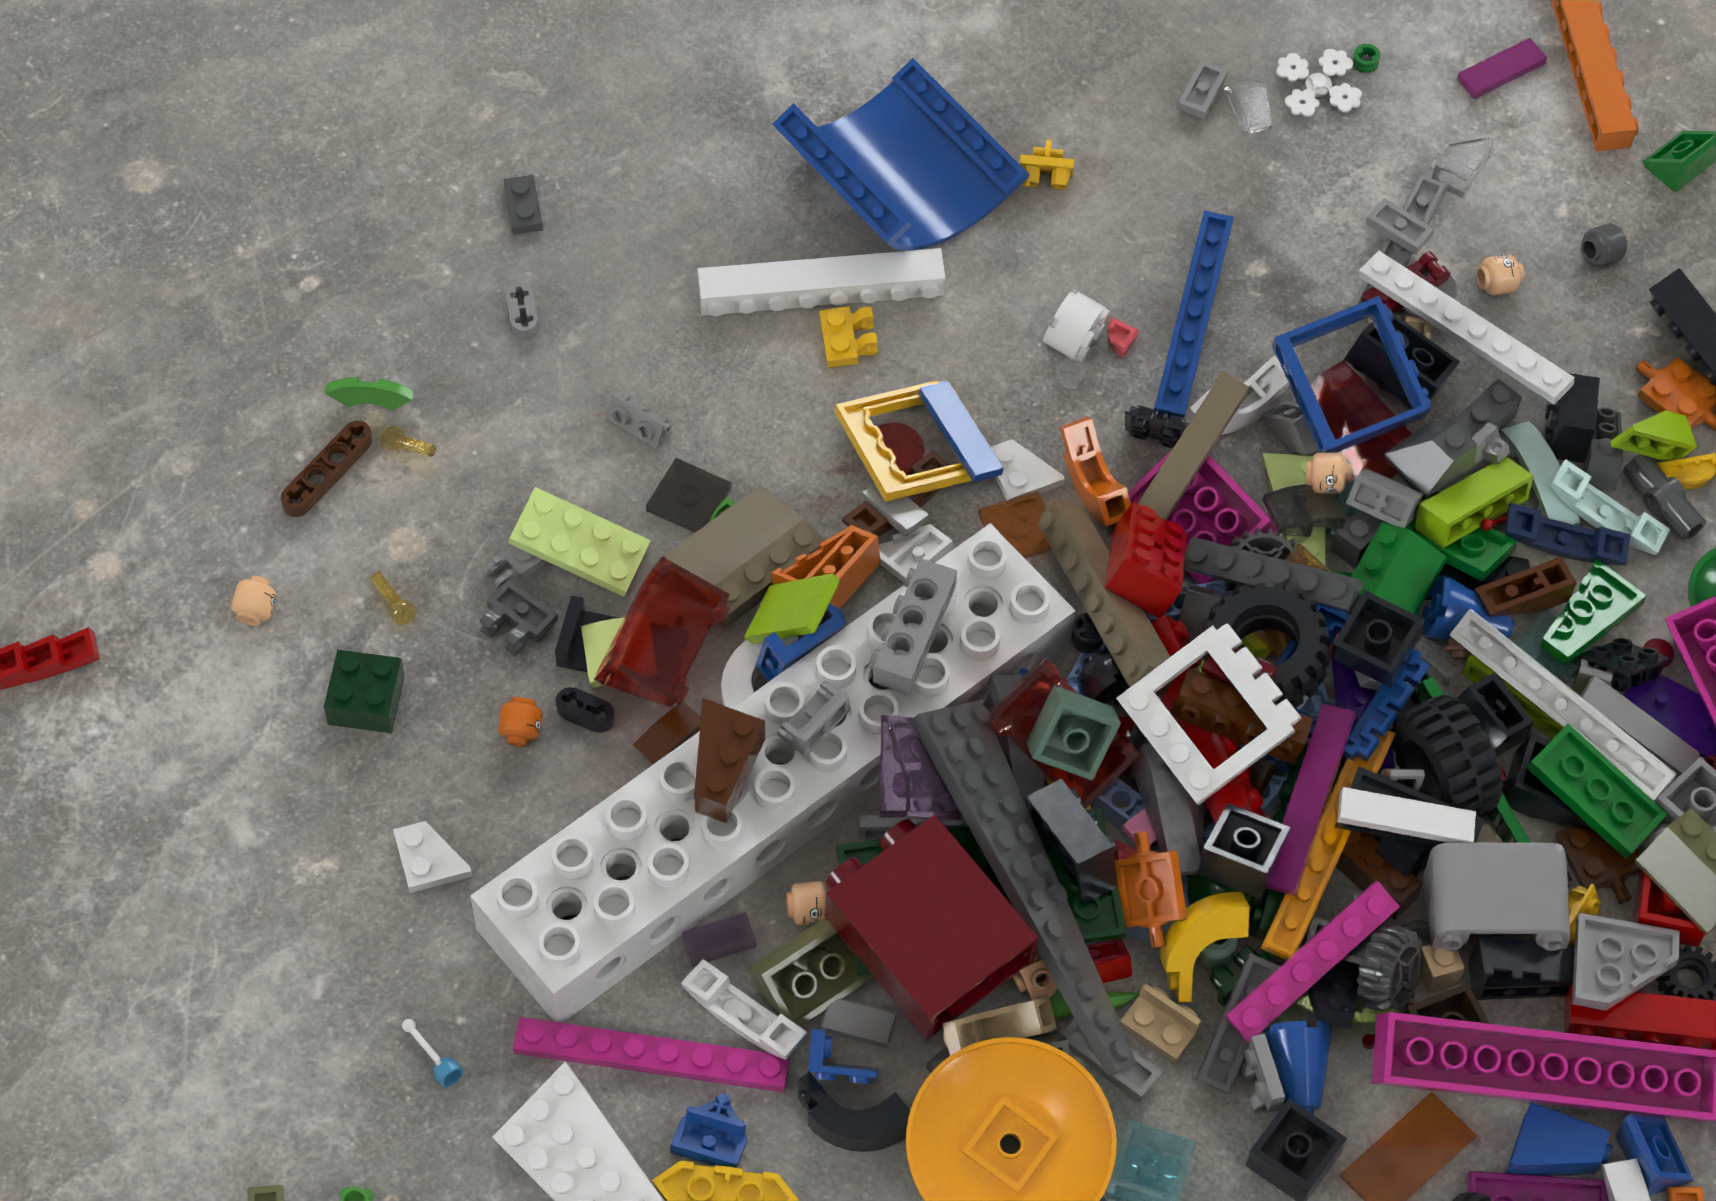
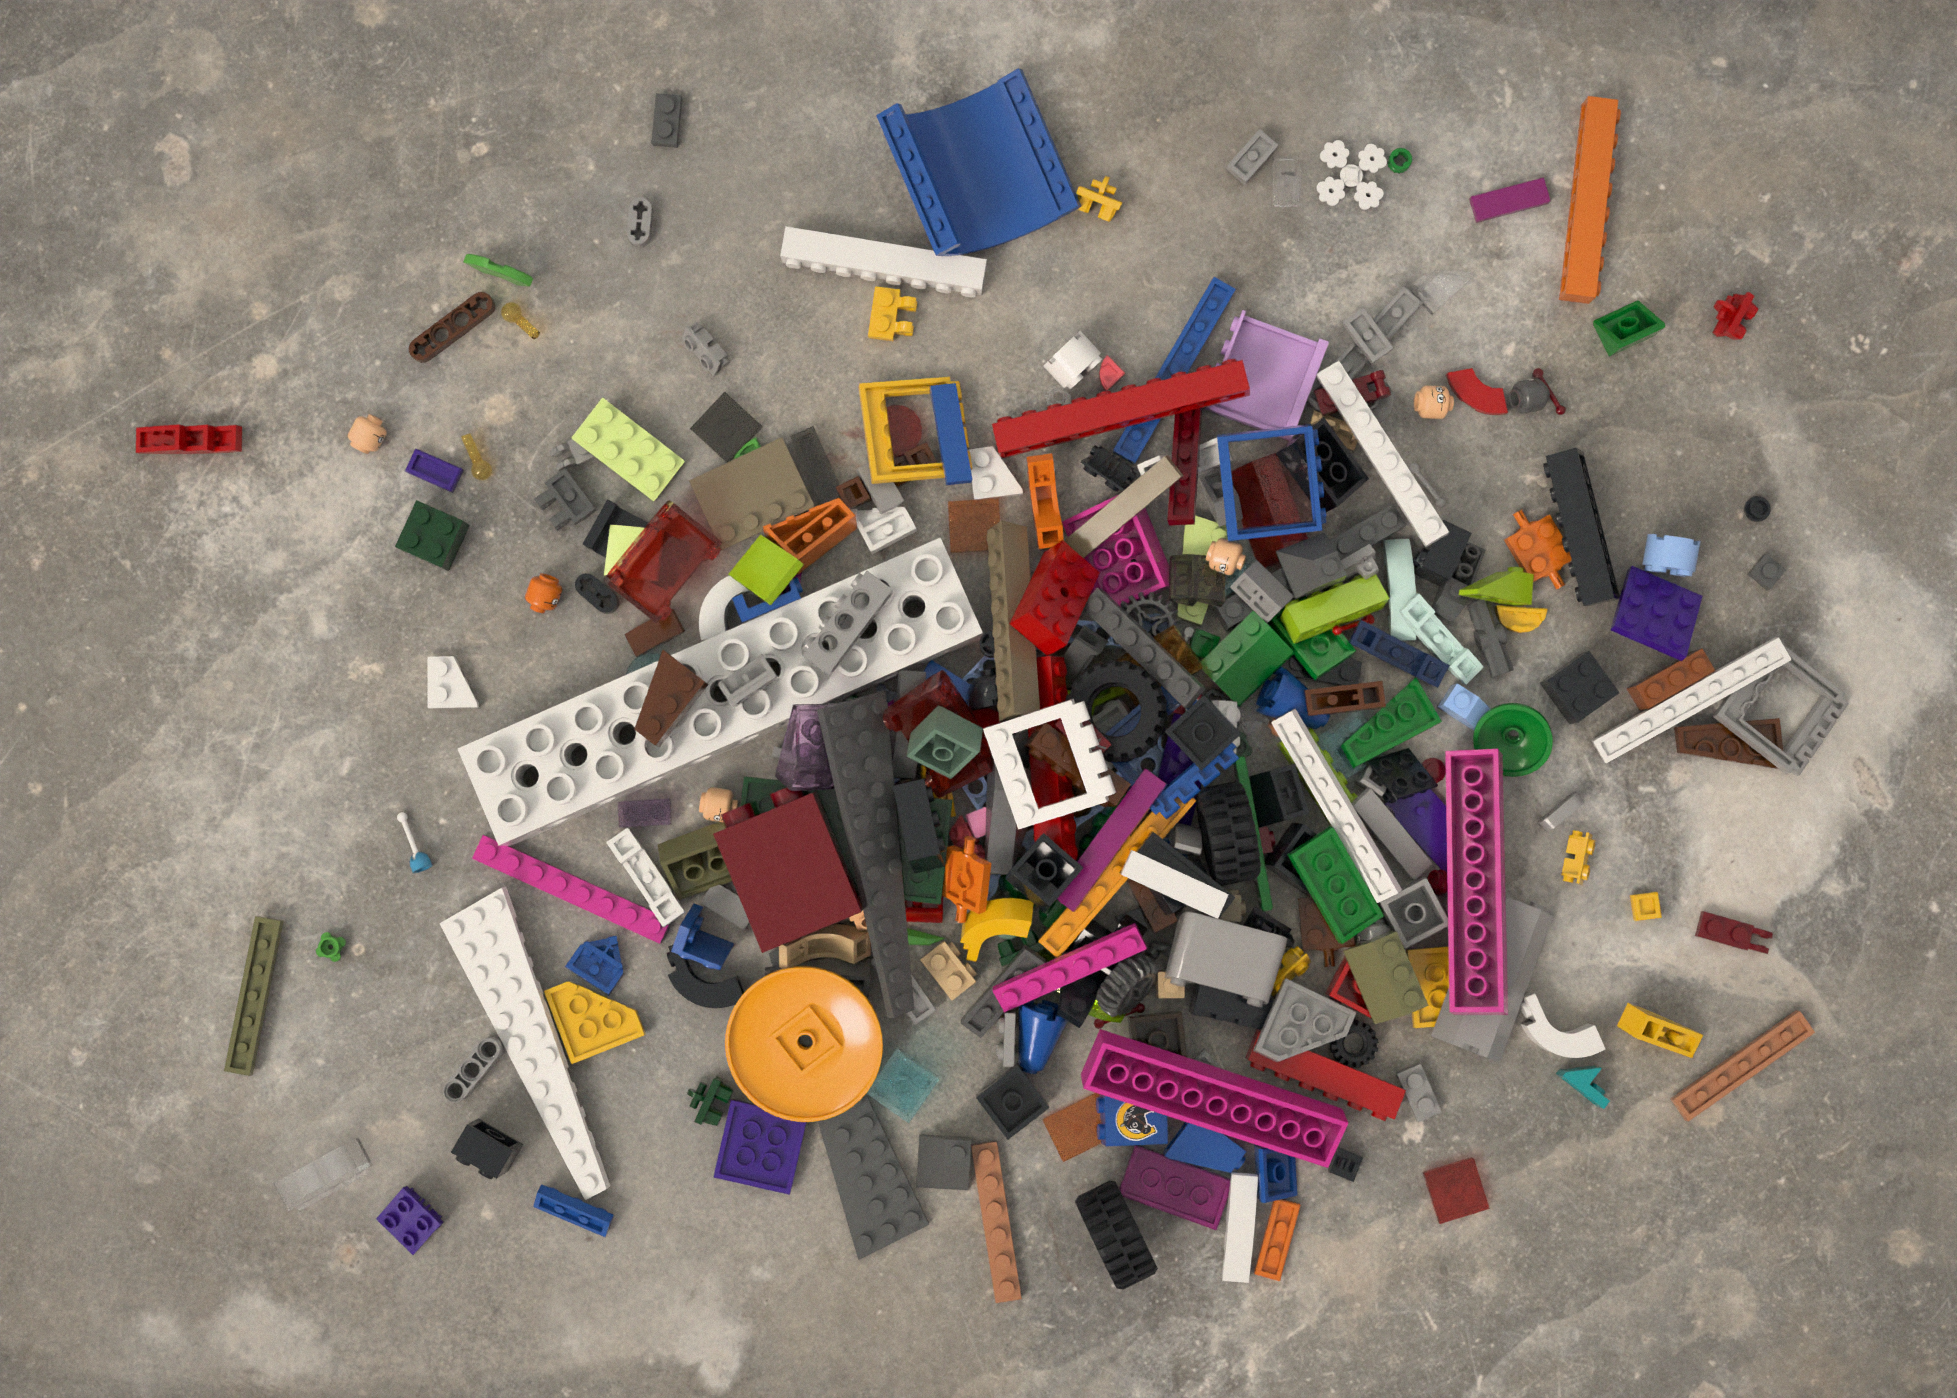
camera: 15 degrees right, 25 degrees up
(345, 625) = (434, 470): none -> dark purple tile
(806, 500) = (816, 464): none -> clear smoke plate
(1149, 358) = (1121, 409): none -> red brick
(1255, 409) = (1186, 458): none -> dark red plate
(1294, 288) = (1278, 373): none -> lavender panel
(1452, 1132) = (1129, 1124): none -> blue panel
(1551, 261) = (1476, 394): none -> red tile
(1644, 253) = (1560, 409): none -> dark red hinge
(1664, 573) = (1463, 705): none -> light blue slope

